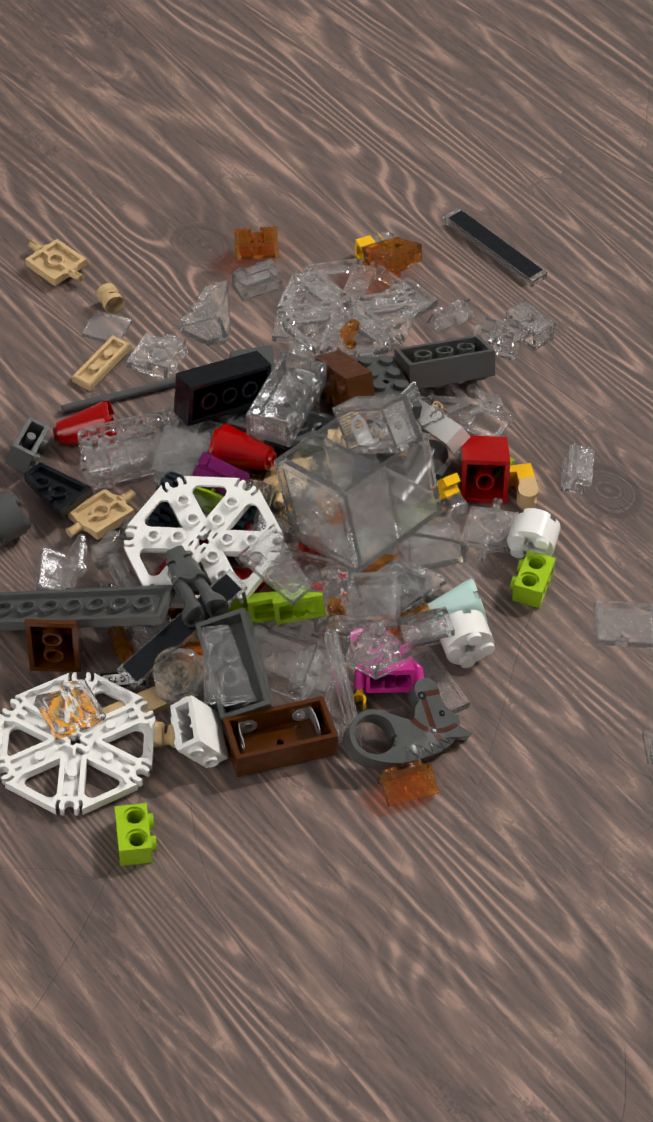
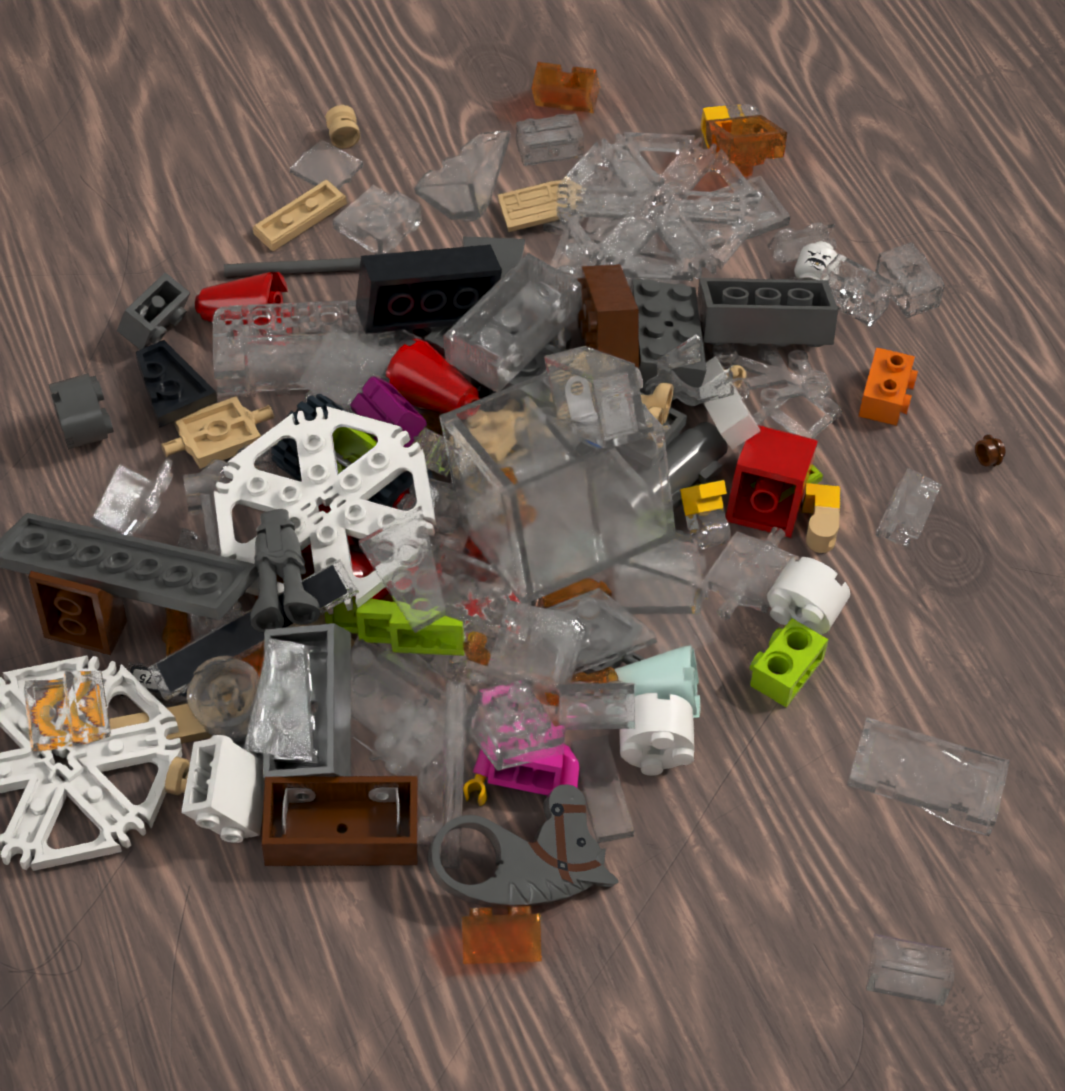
camera: 15 degrees right, 5 degrees up
(55, 262) = (290, 62): tan plate -> none
(134, 834) = (80, 919): lime brick -> none
(259, 326) = (530, 206): none -> tan window
(348, 332) = (642, 241): clear orange arm -> none
(464, 324) = (813, 260): none -> white head
(495, 246) = (900, 156): black tile -> none
(538, 395) = (887, 386): none -> orange brick
(617, 423) = (990, 451): none -> reddish brown plate

